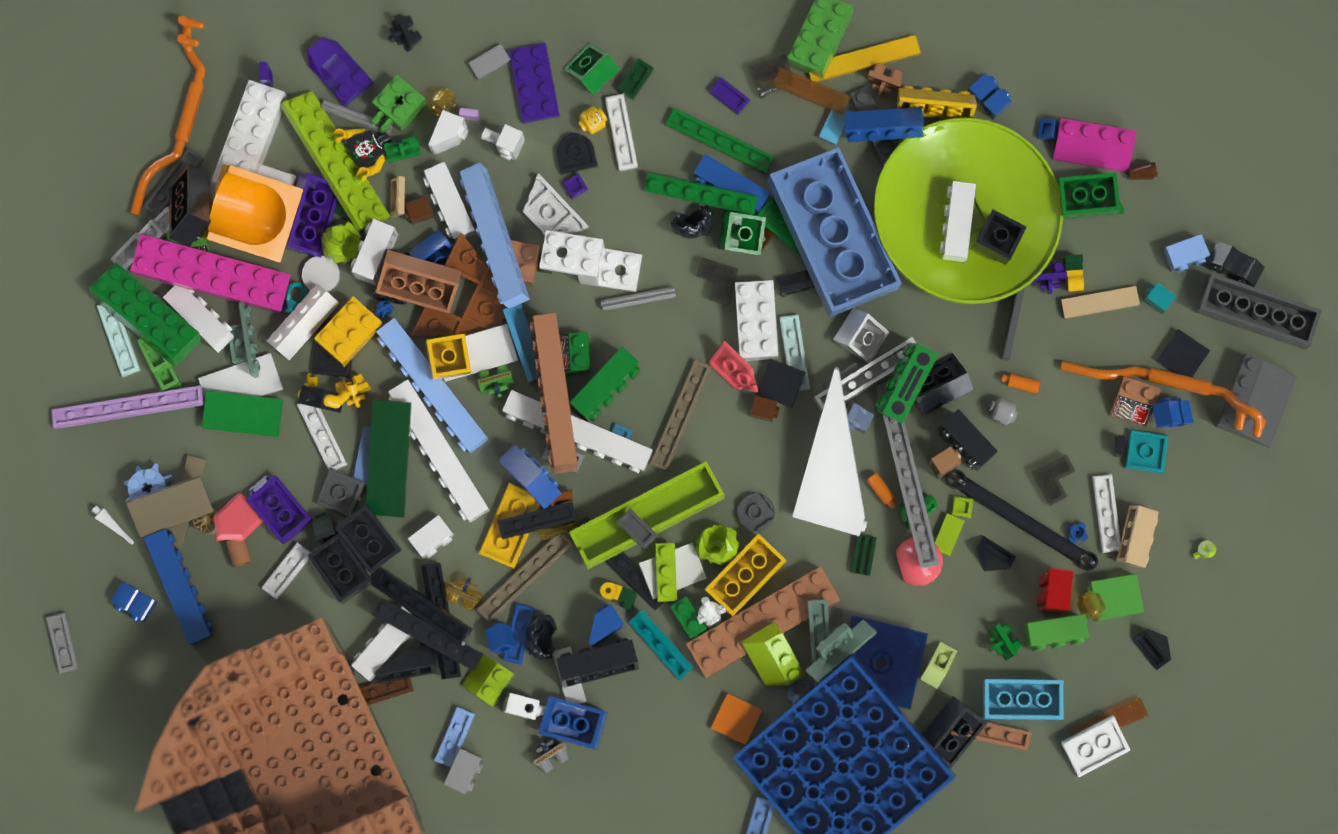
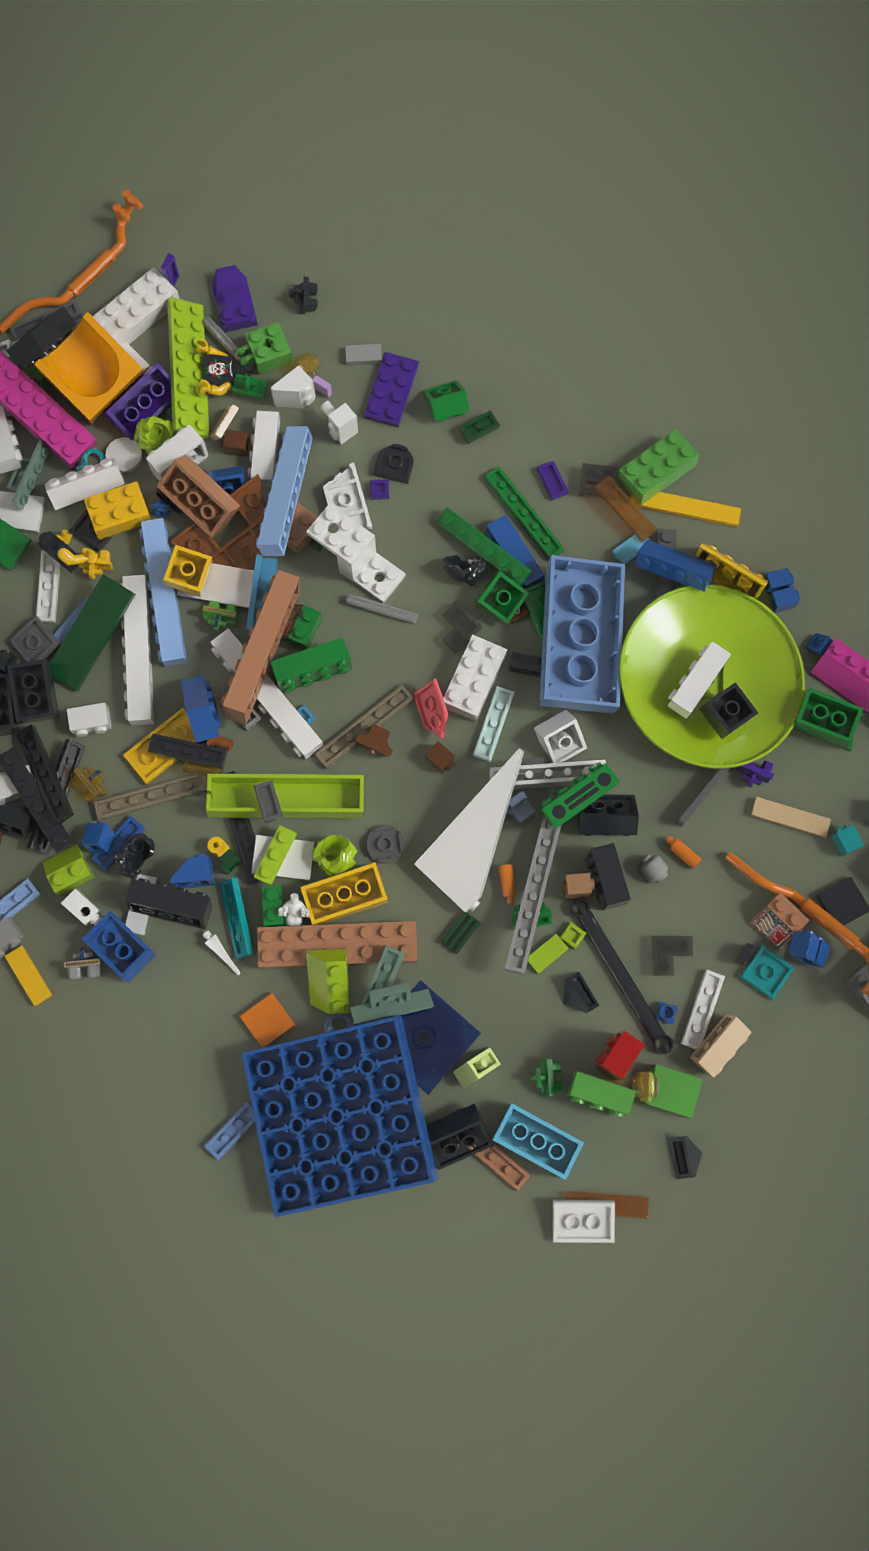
camera: 20 degrees right, 5 degrees down
(506, 789) = (28, 976): none -> yellow tile
(592, 120) = (424, 441): yellow head -> none
(621, 132) = (443, 465): white tile -> none
(655, 678) = (215, 944): none -> white piece
(698, 423) = (375, 741): none -> reddish brown brick
(781, 383) = (467, 742): black tile -> none
(893, 82) = (692, 533): nougat hips -> none
(910, 566) = (496, 963): coral cylinder -> none
(1074, 270) = (782, 775): leg -> none
(1205, 549) = (778, 1090): lime piece -> none

